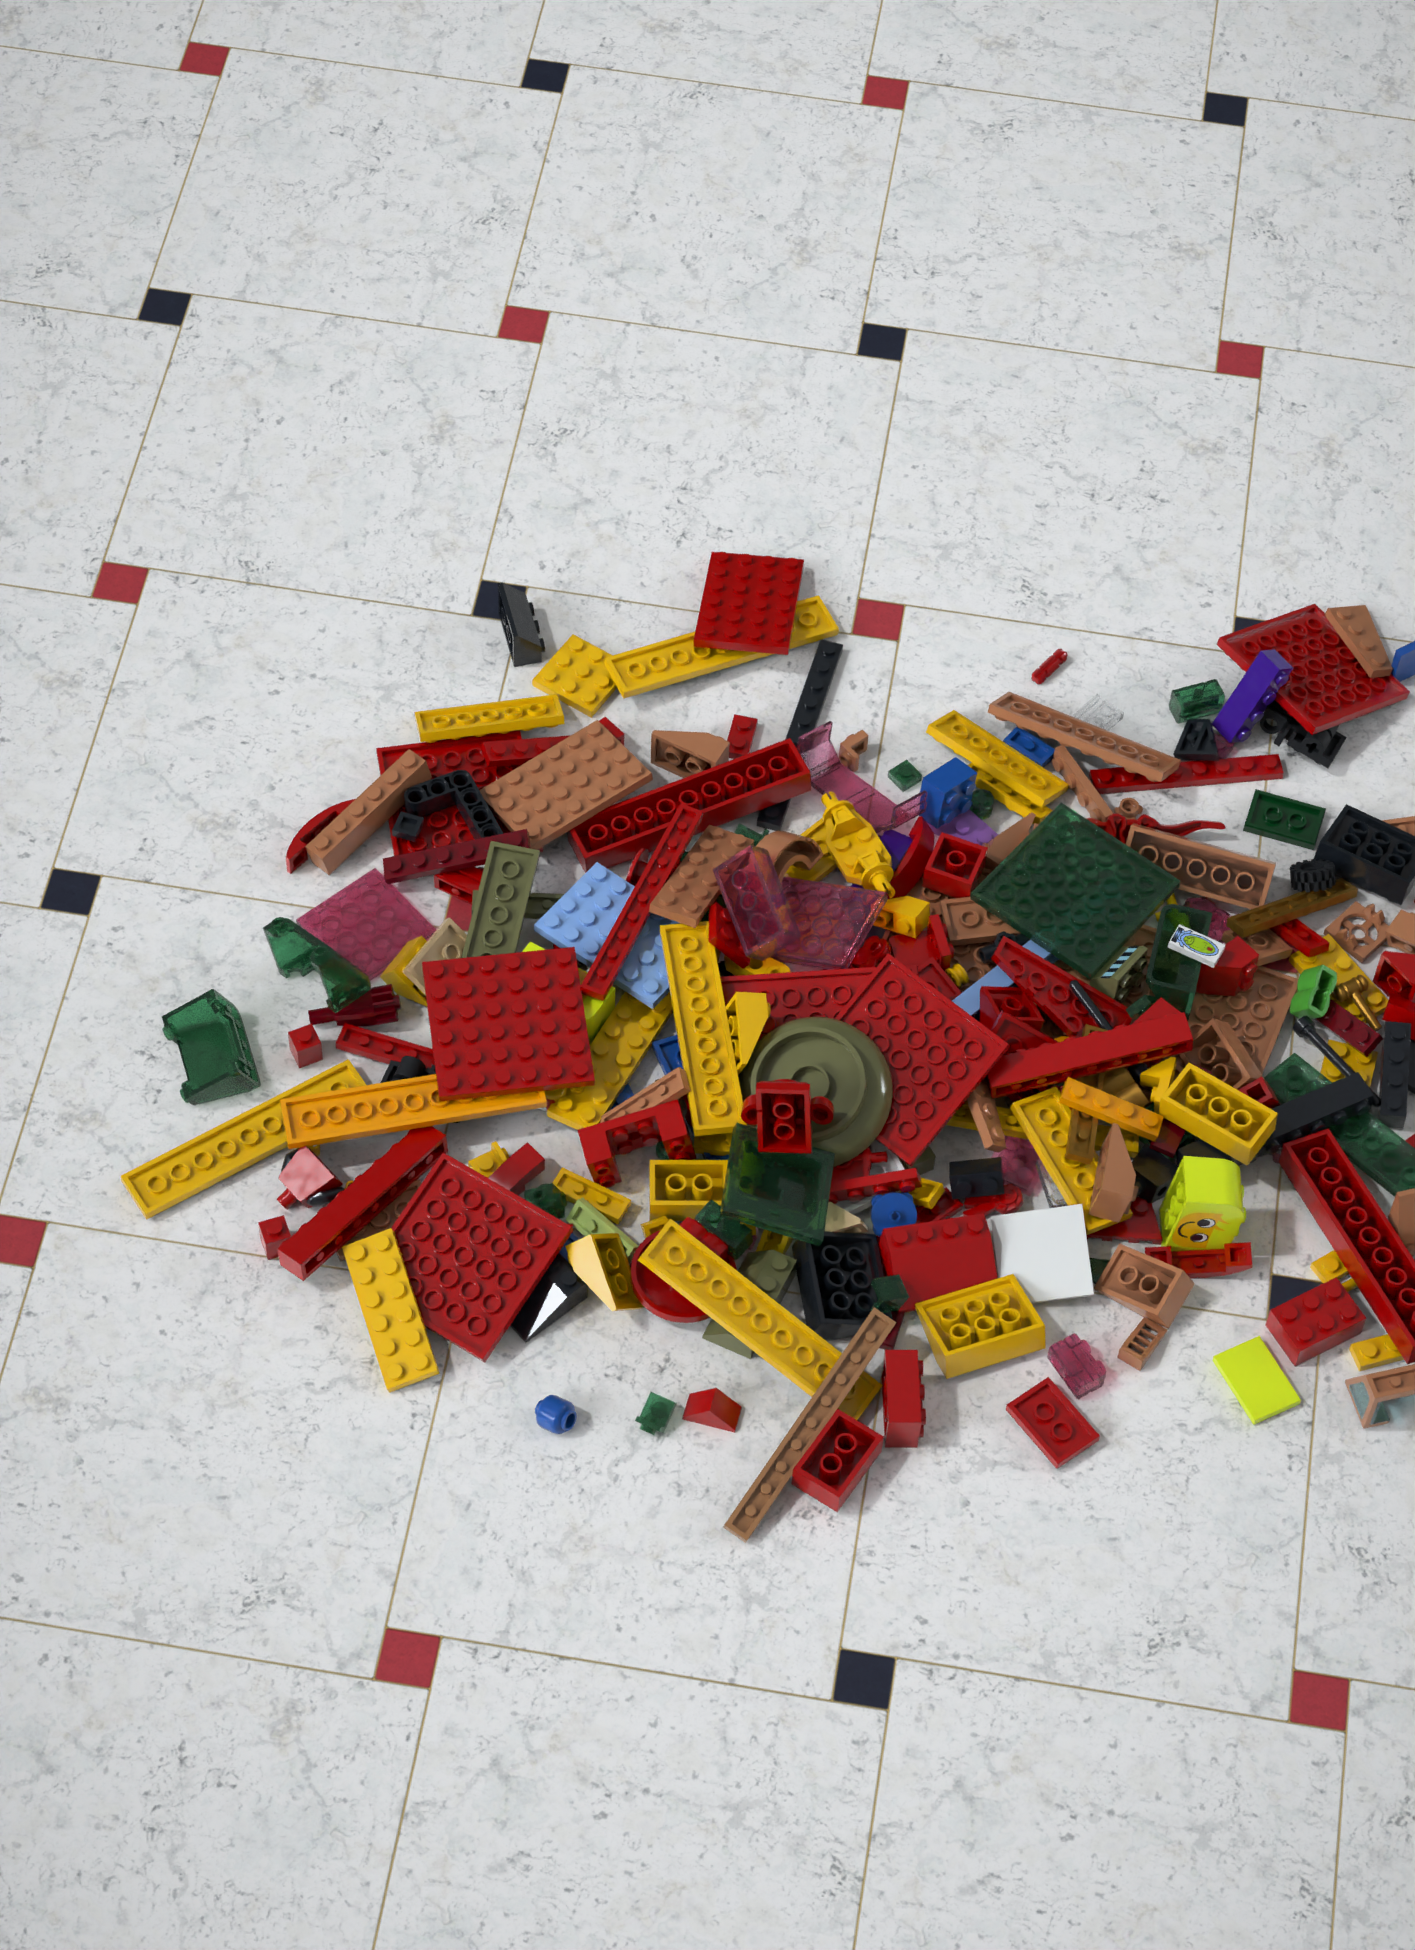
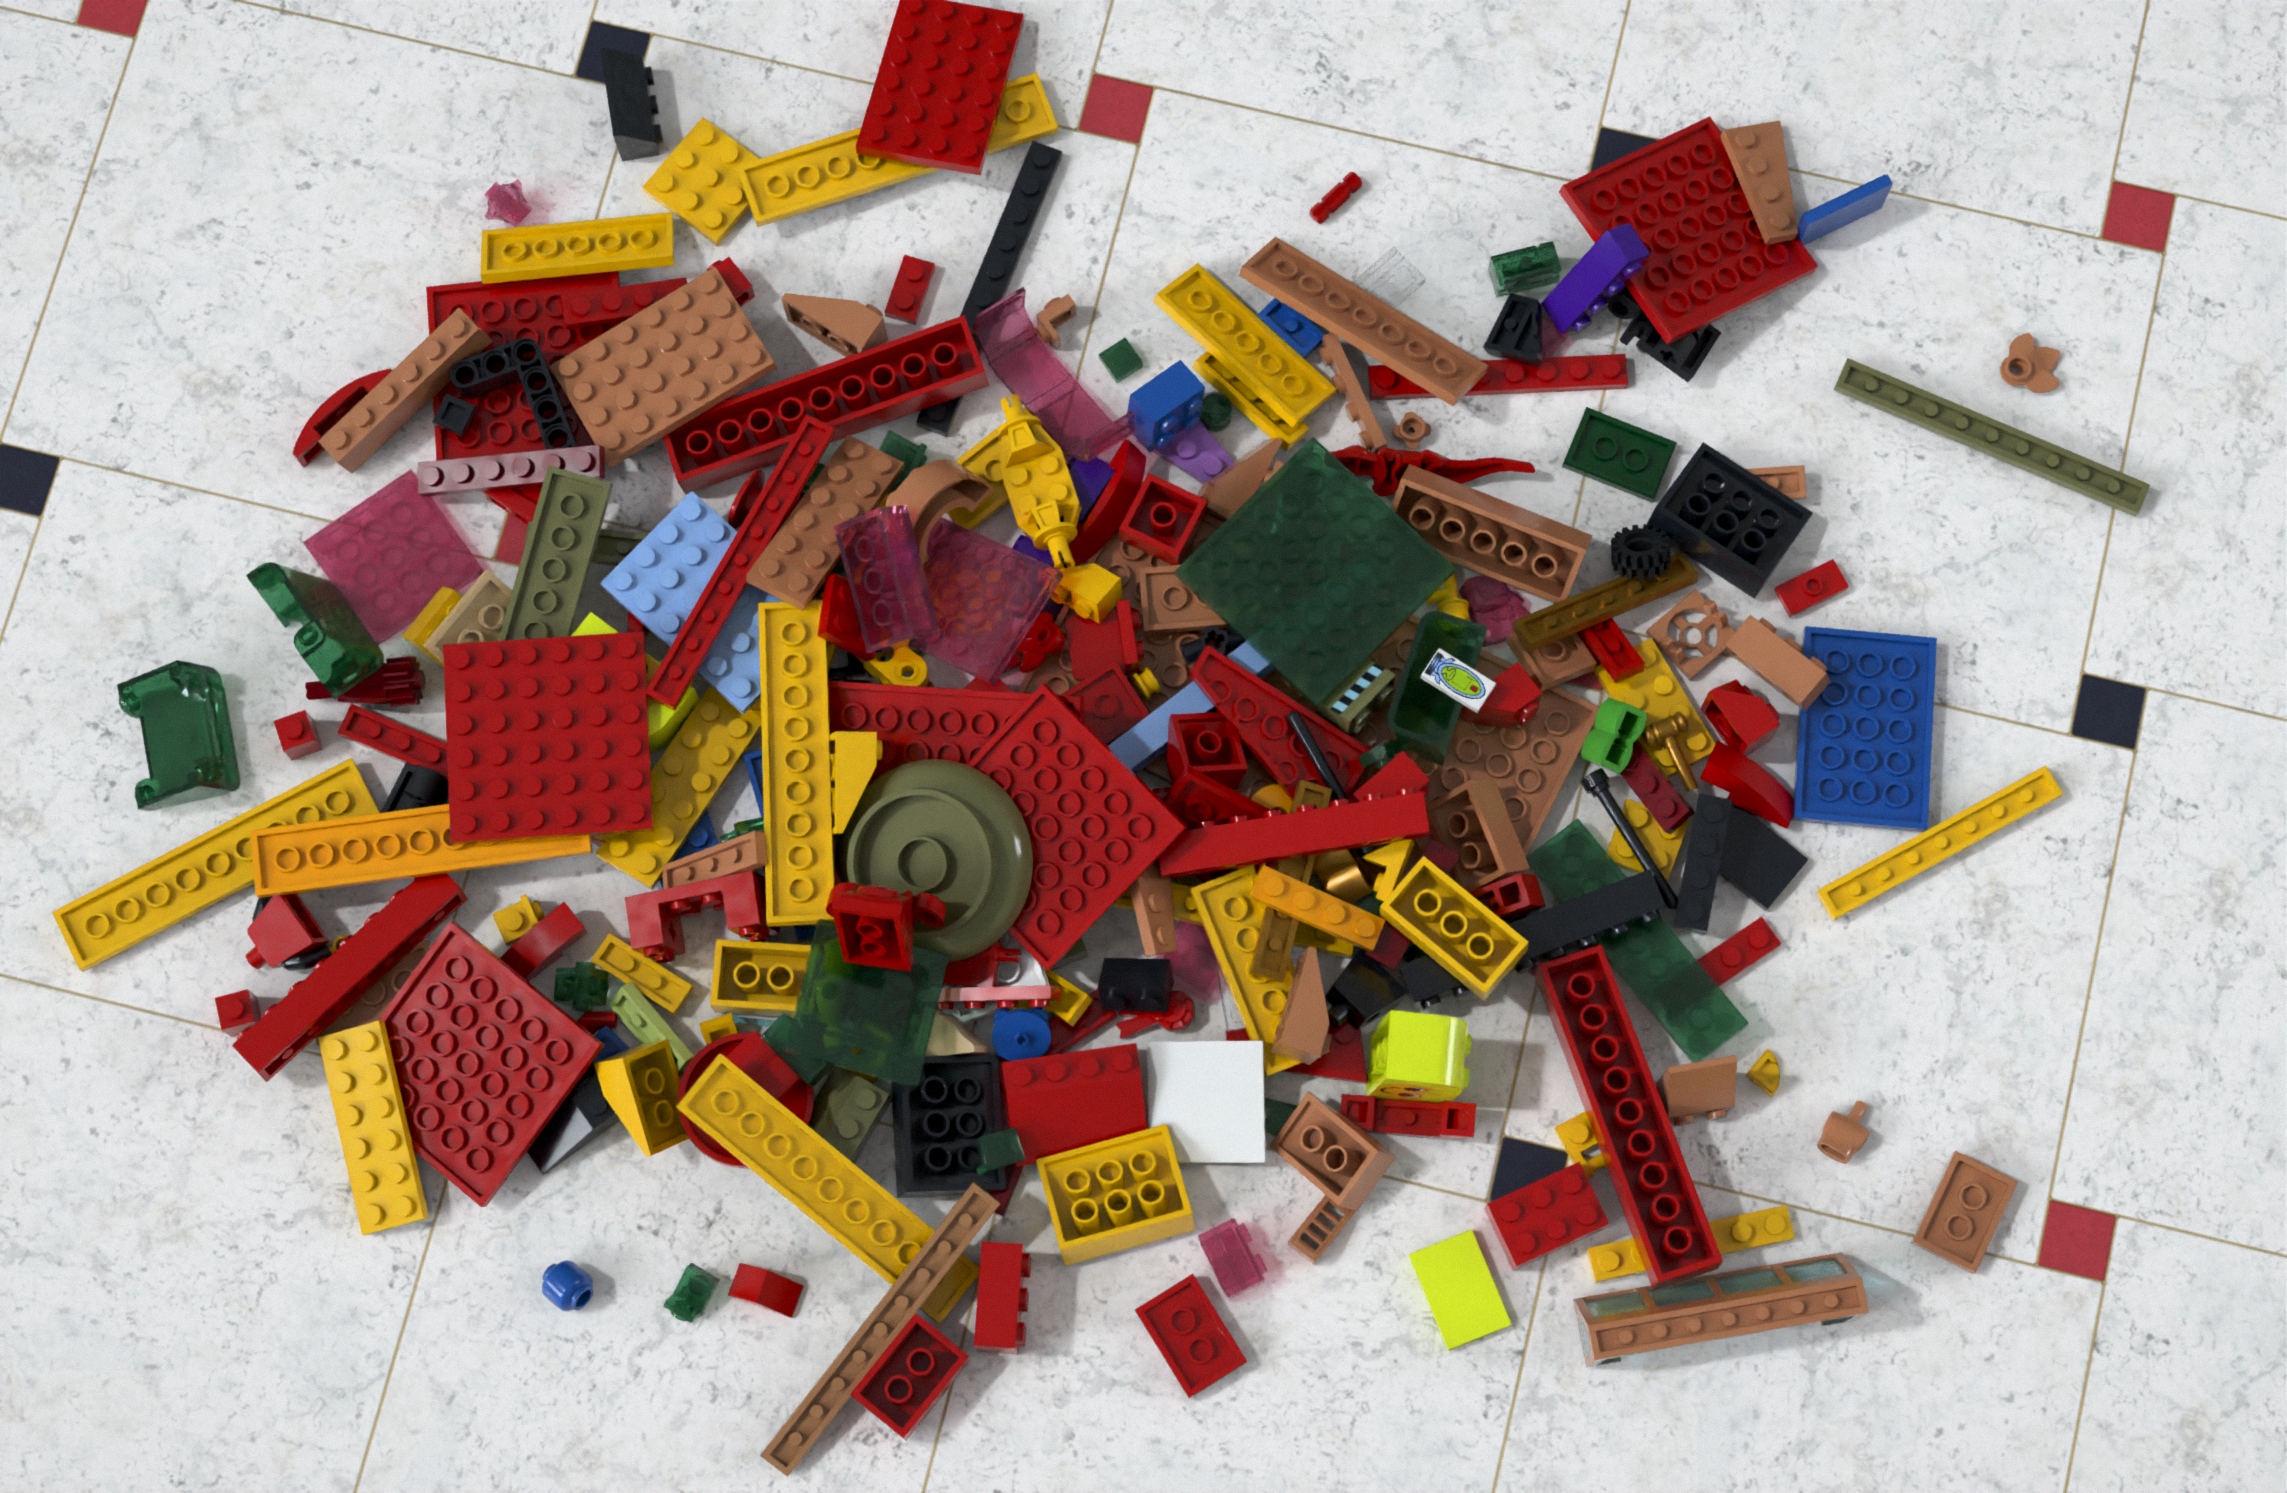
camera: 10 degrees right, 20 degrees up
(432, 692) = (507, 203): none -> clear pink rock

